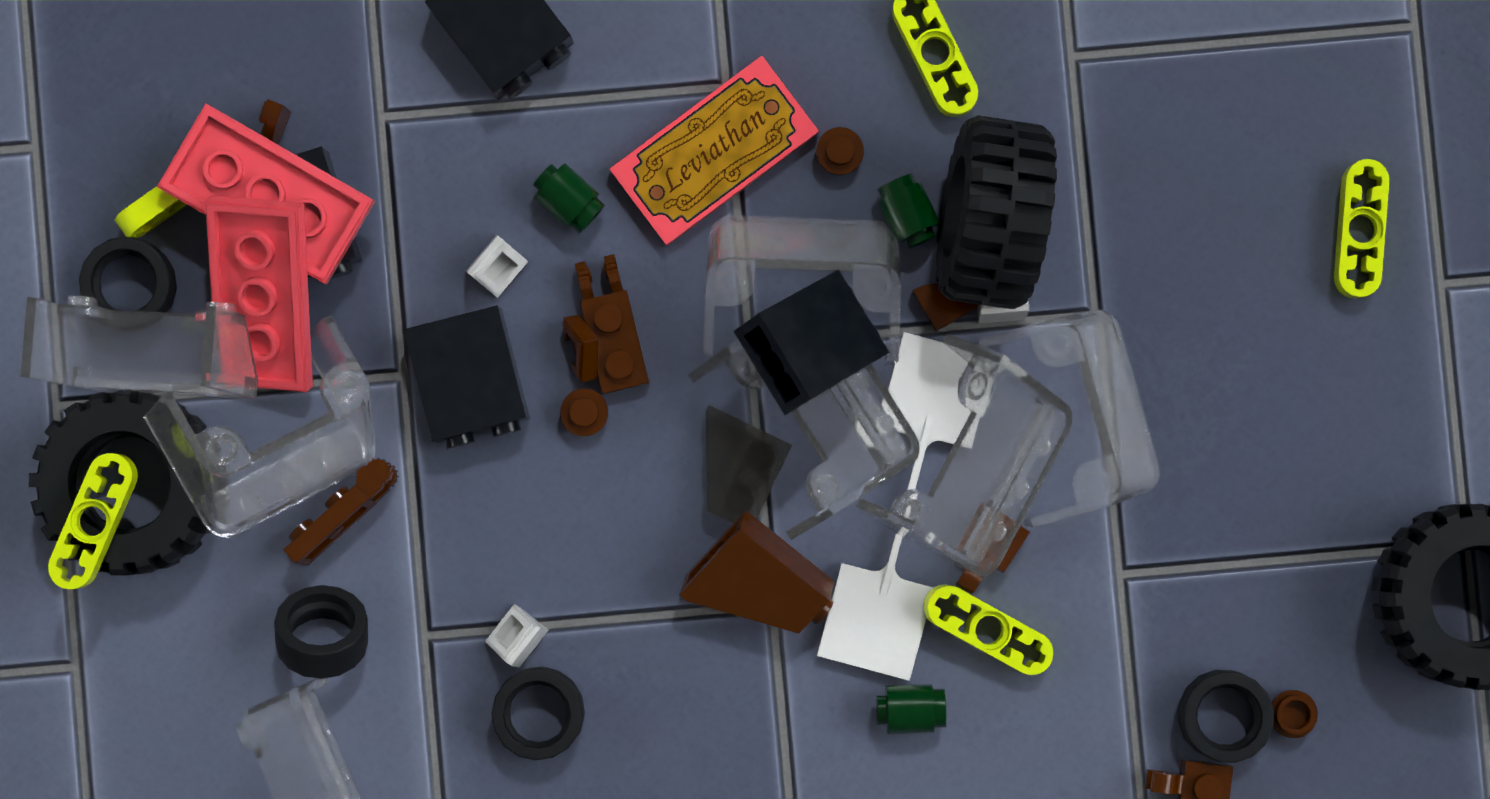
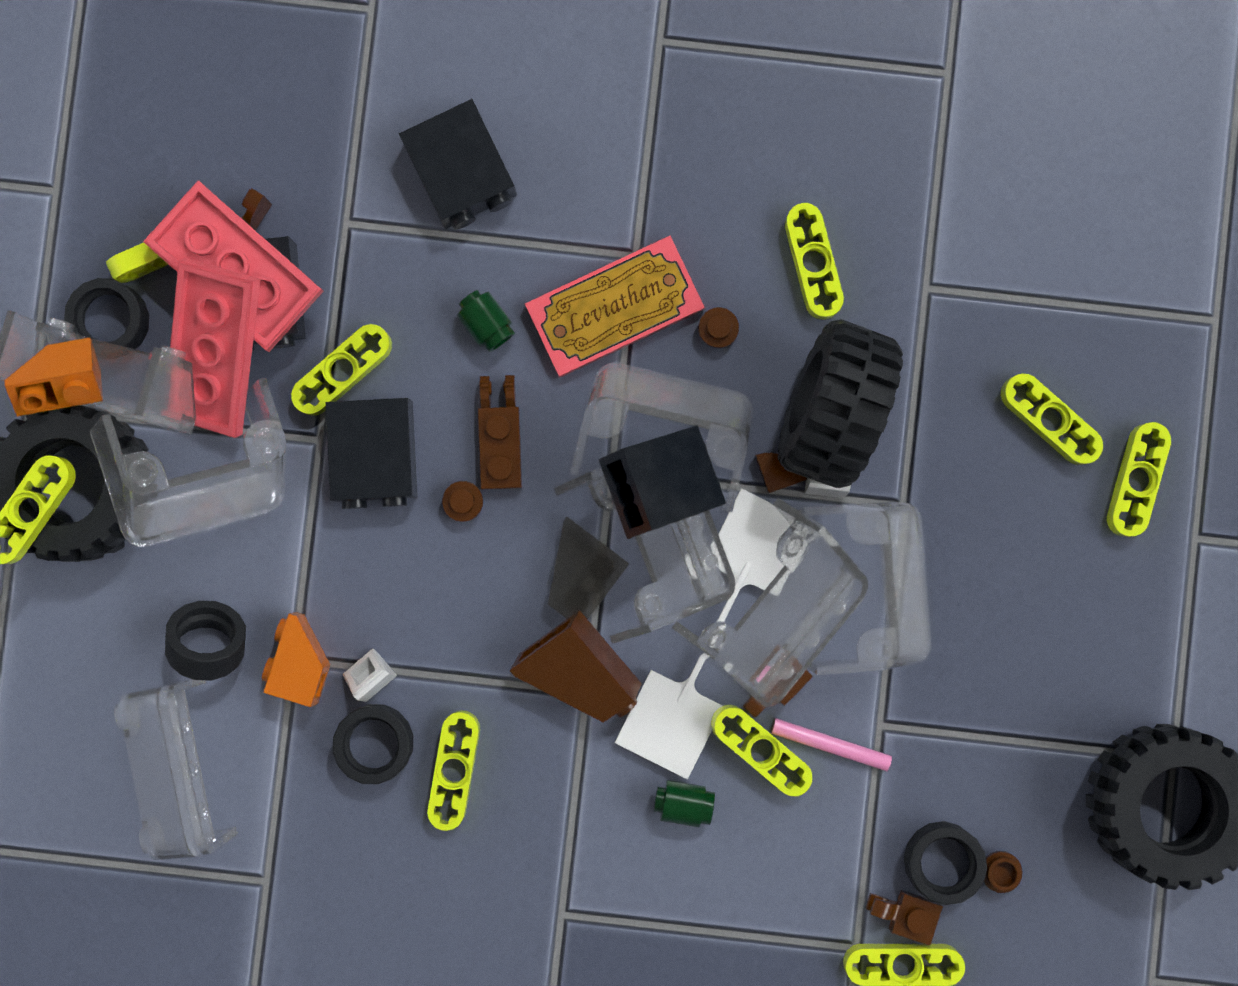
camera: 10 degrees right, 0 degrees up
(93, 364) = (56, 378): none -> orange slope
(343, 511) = (246, 543): reddish brown hinge -> none
(422, 251) = (356, 341): none -> neon yellow beam
(433, 639) = (299, 663): none -> orange slope
(496, 266) = (415, 366): white slope -> none
(585, 347) = (474, 447): reddish brown tile -> none
(650, 760) = (438, 798): none -> neon yellow beam
(908, 210) = (765, 388): dark green brick -> none
(1067, 607) = (831, 744): none -> bright pink bar
(1271, 206) = (1069, 417): none -> neon yellow beam

